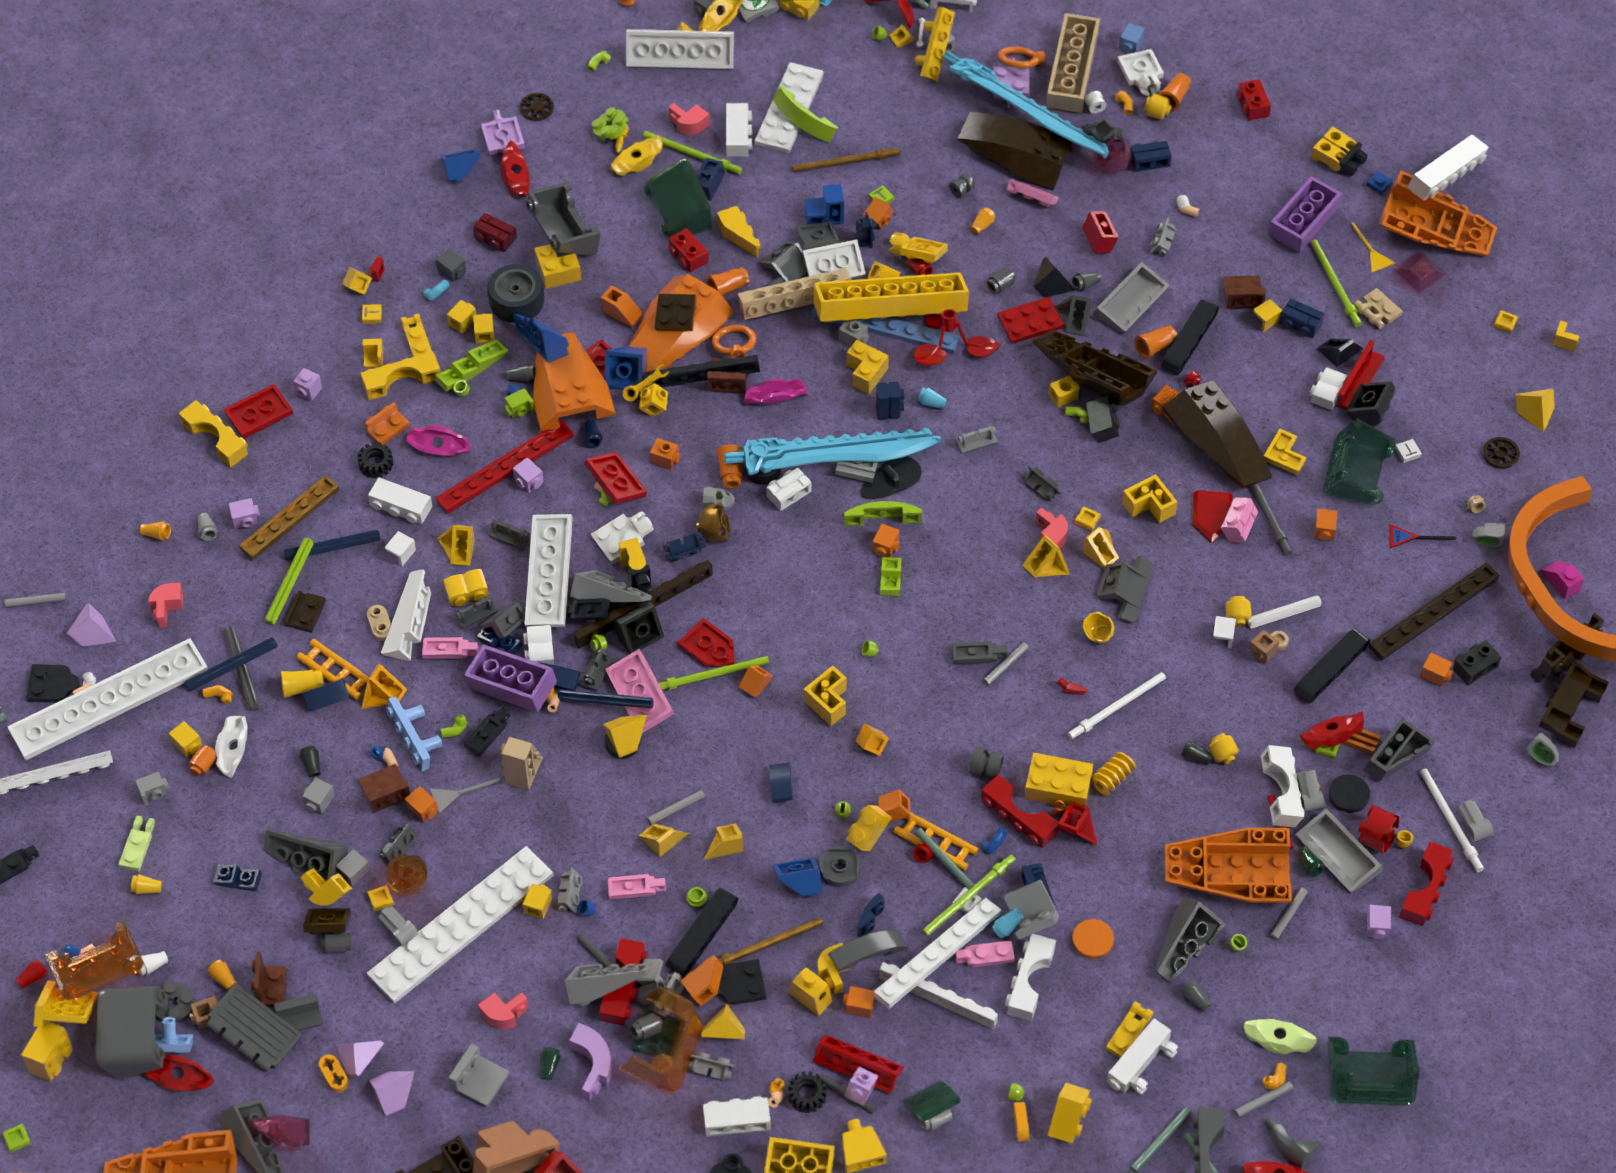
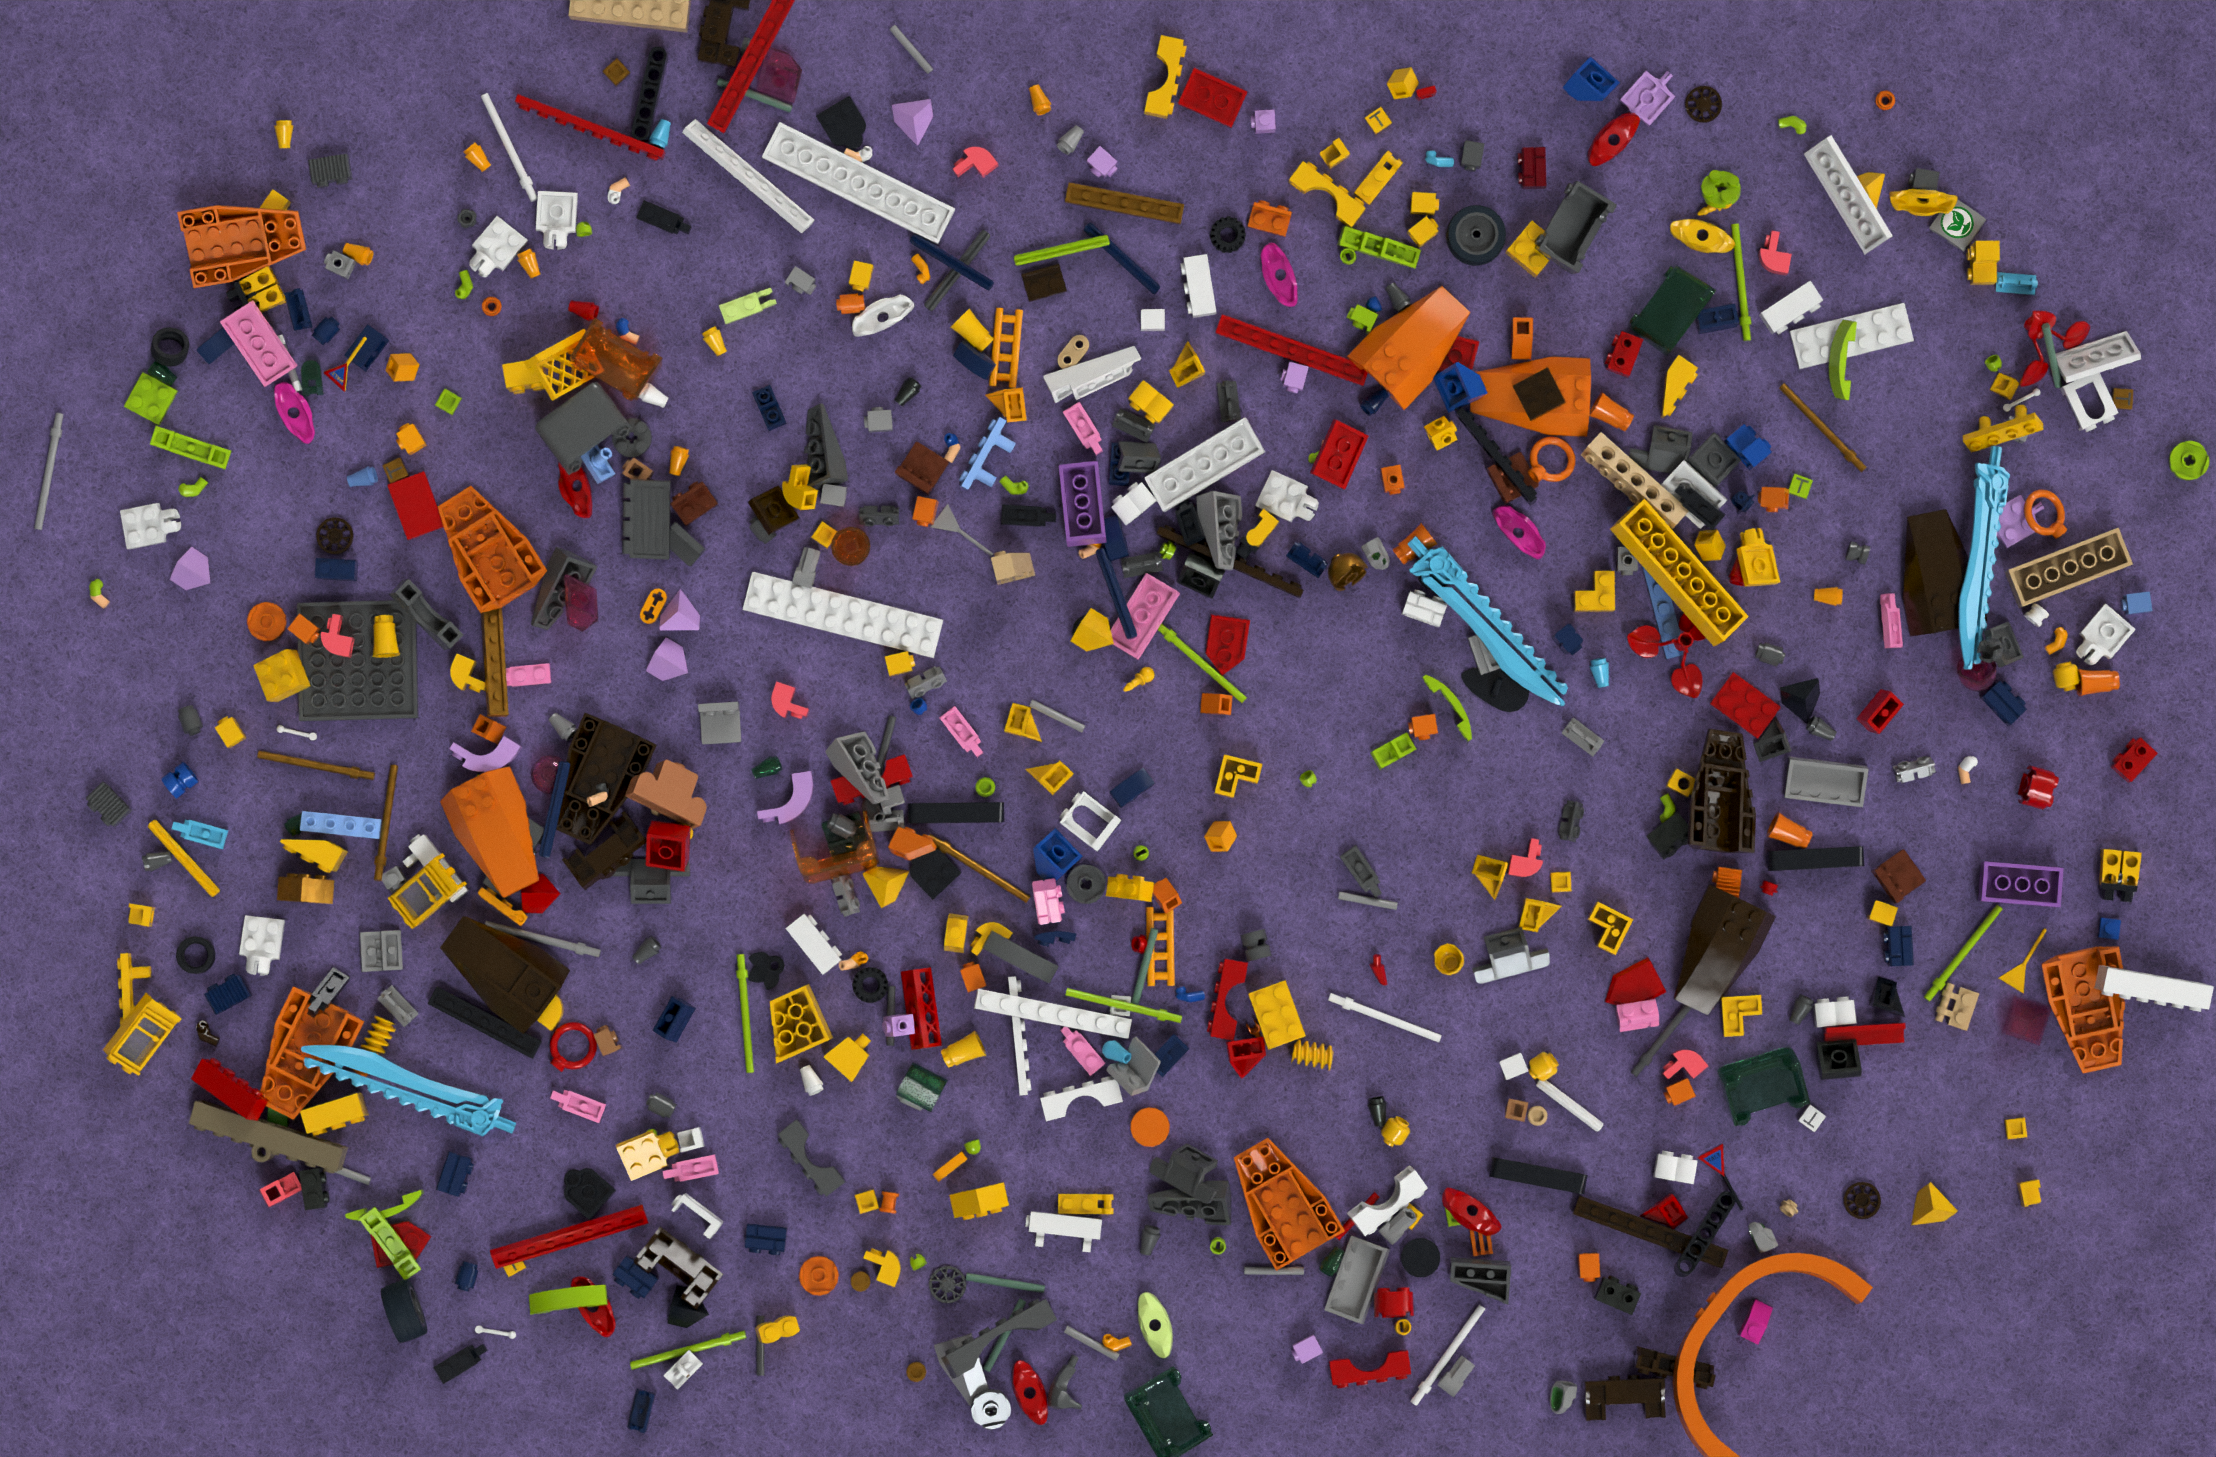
camera: 55 degrees right, 30 degrees up
(542, 338) = (1437, 298): blue wedge -> none
(640, 386) = (1438, 408): yellow brick -> none
(691, 723) = (1145, 675): none -> yellow bar
(799, 815) = (1085, 800): none -> white panel
(833, 899) = (1047, 901): none -> bright pink brick
(847, 258) = (1700, 506): none -> black hinge
(921, 1046) = (963, 1050): none -> yellow plant
(1156, 924) = (1187, 1172): none -> dark grey plate
(1234, 164) = (2037, 787): none -> red brick
(1303, 507) = (1685, 1059): none -> coral brick
(1309, 408) = (1801, 1008): none -> dark grey cone
(1389, 564) = (1675, 1168): none -> white brick
(1422, 588) = (1666, 1212): none -> red slope
(1462, 568) = (1709, 1226): none -> black beam

